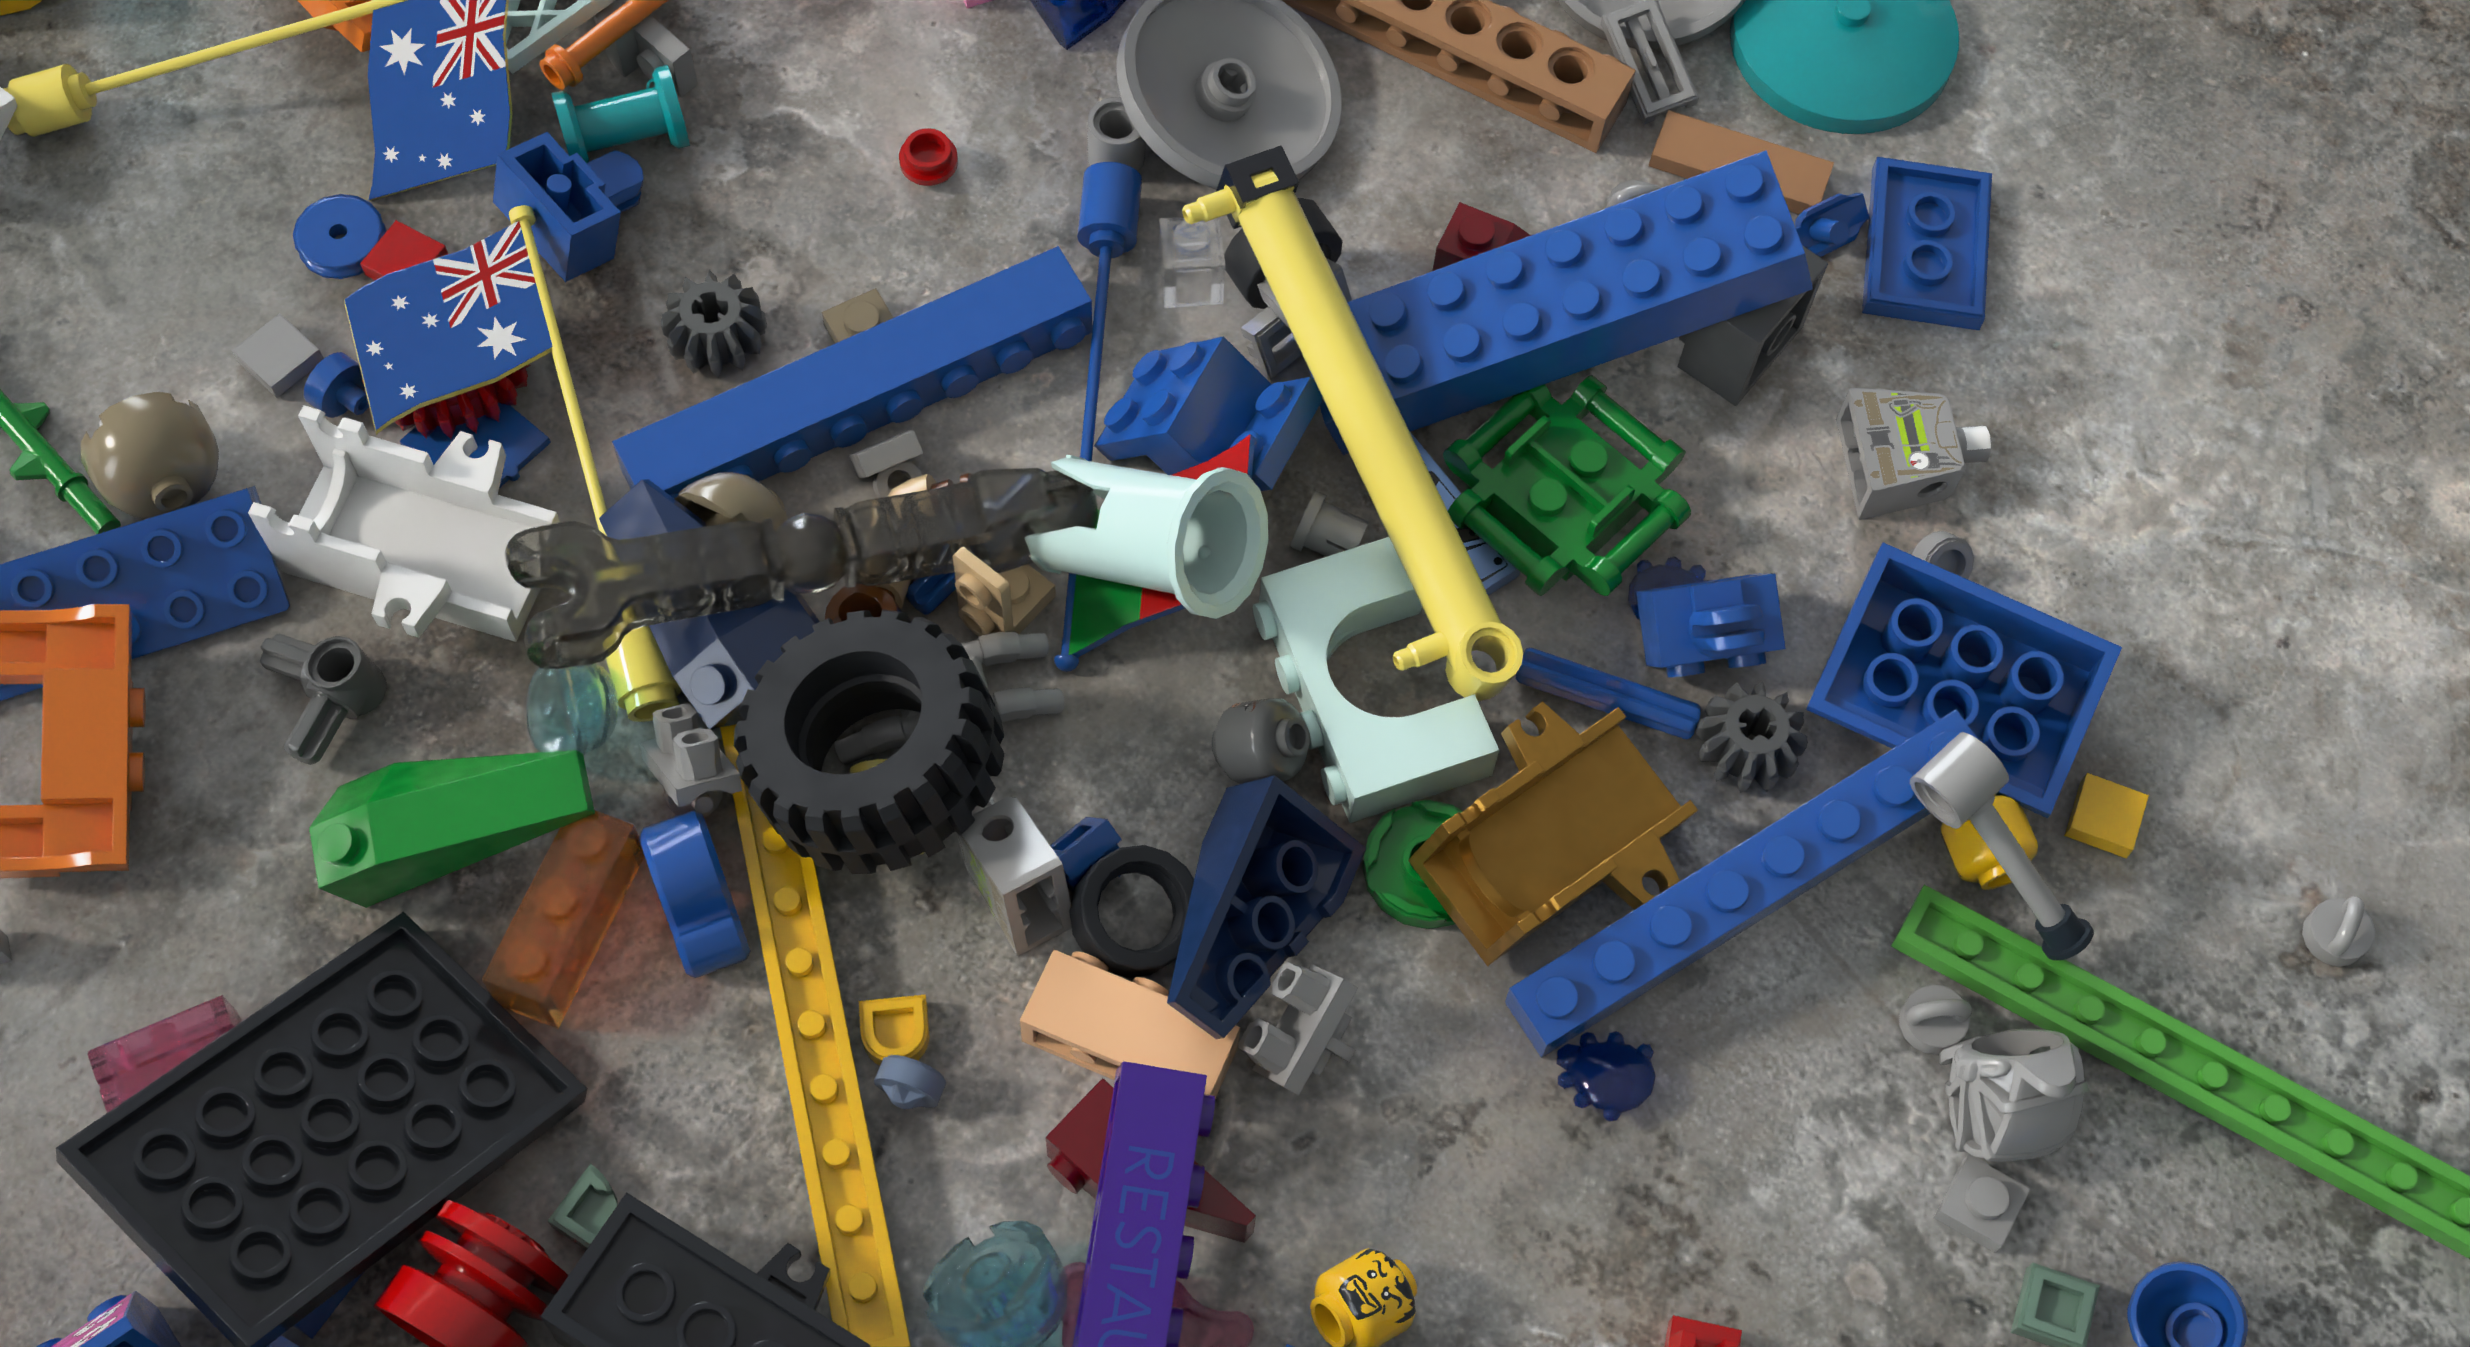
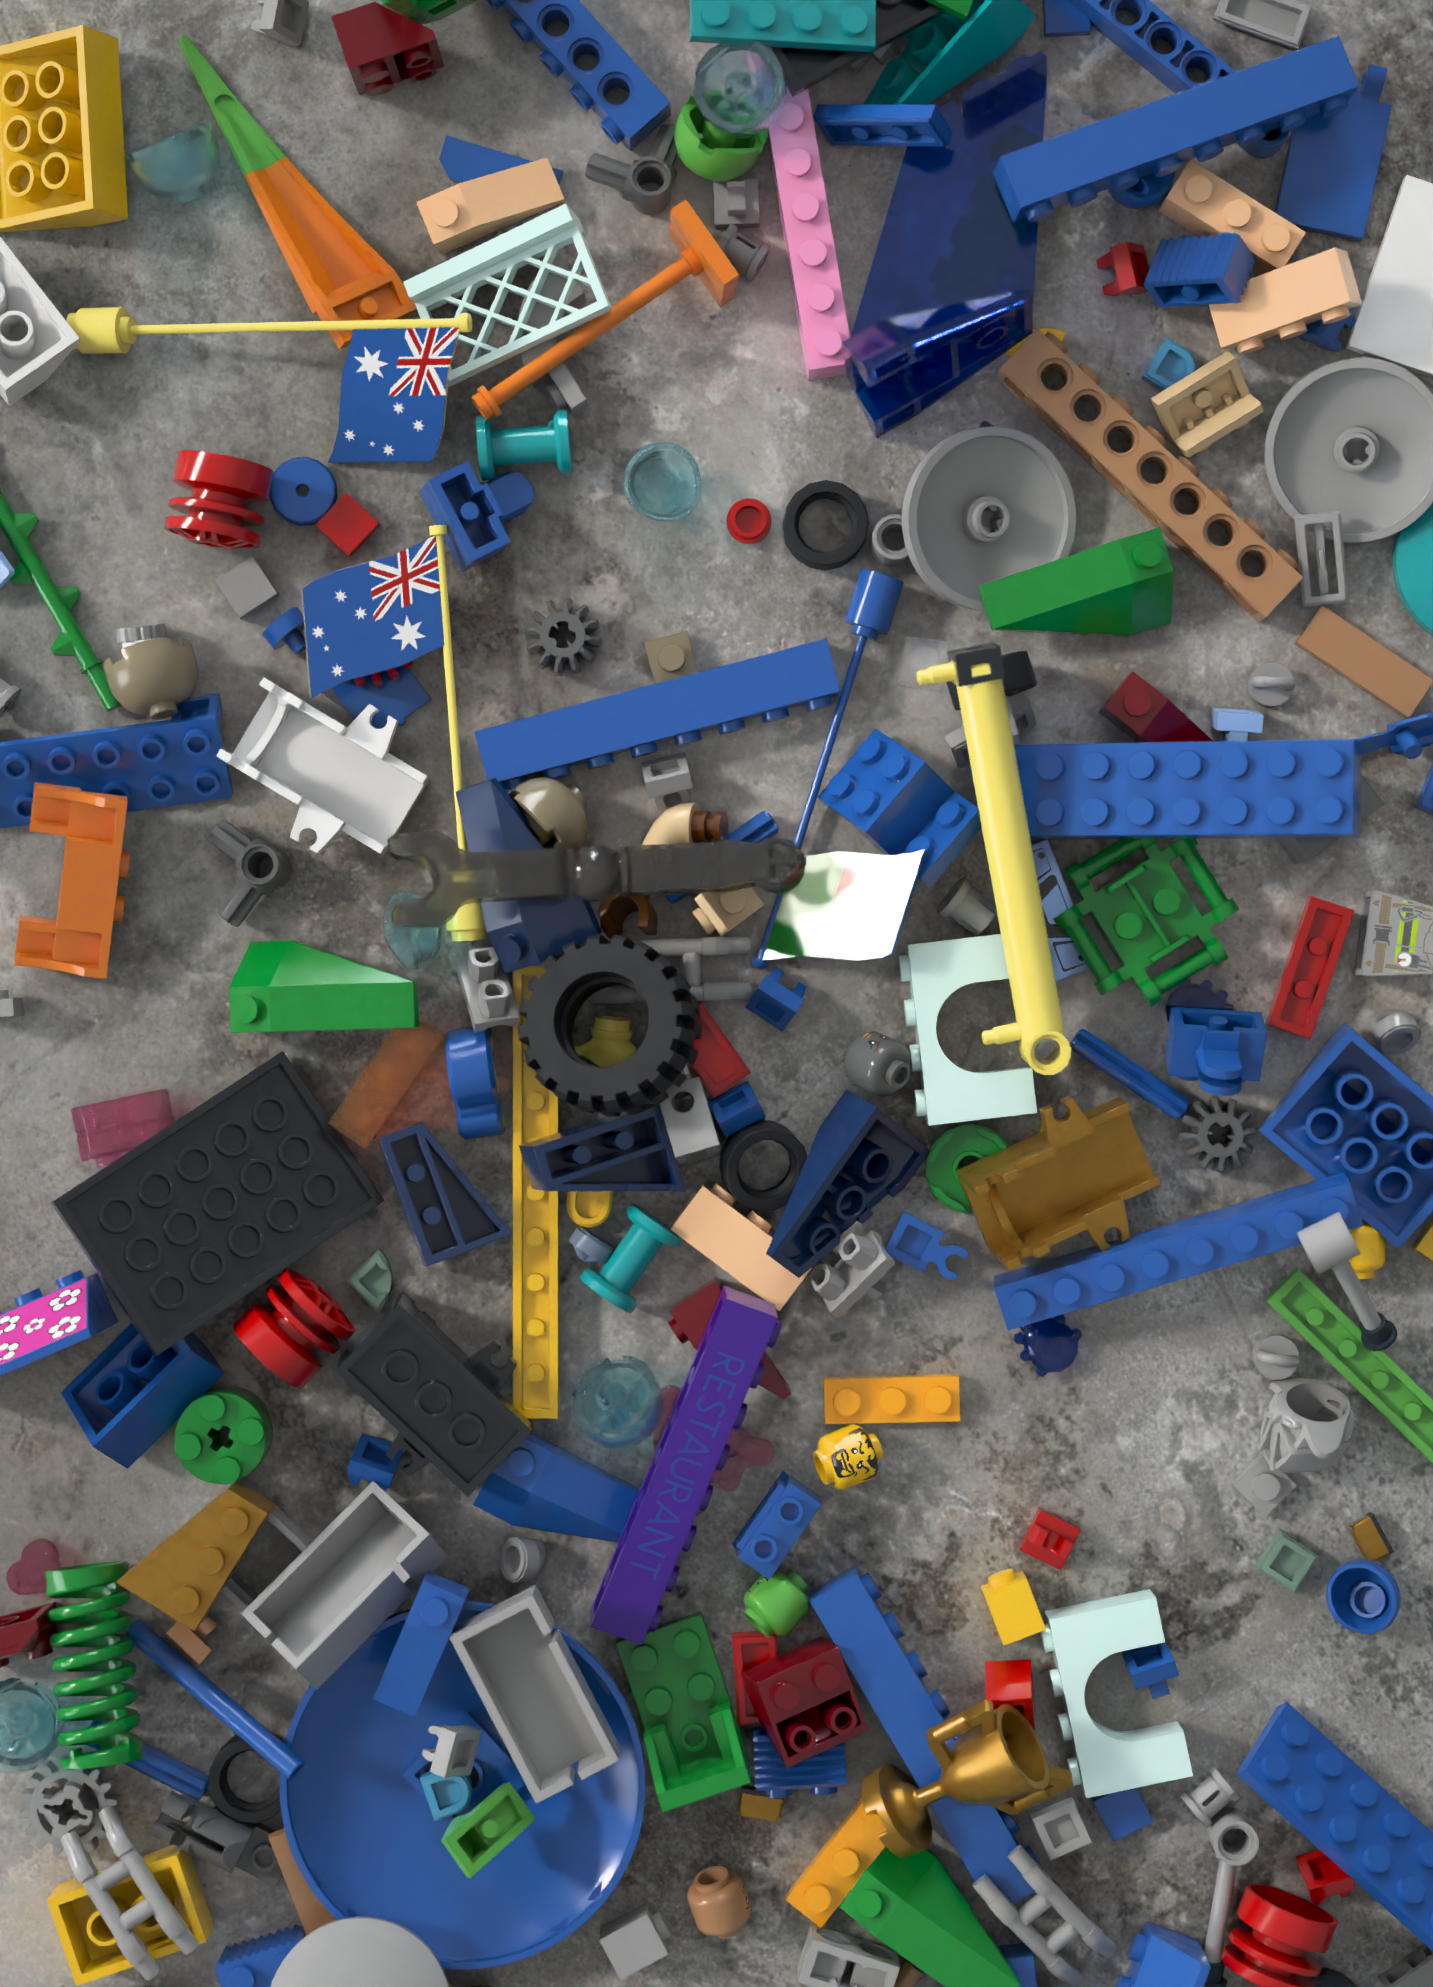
camera: 20 degrees right, 25 degrees up
(222, 241) = (218, 499): none -> red wheel
(664, 1058) = (436, 1197): none -> dark blue wedge
(805, 123) = (662, 482): none -> clear light blue helmet
(904, 938) = (606, 1156): none -> dark blue wedge
(972, 1081) = (630, 1258): none -> teal piece
(1026, 104) = (832, 491): none -> black tyre
(1041, 792) = (717, 1059): none -> red tile
(1098, 700) = (774, 1001): none -> blue tile
(1165, 534) = (841, 918): light aqua piece -> none
(1387, 976) = (918, 1244): none -> blue plate
(1390, 130) = (1102, 590): none -> green wedge
(1406, 1207) = (891, 1399): none -> light orange plate
(1800, 511) = (1309, 967): none -> red plate
(2160, 1241) = (1370, 1538): none -> pearl gold piece

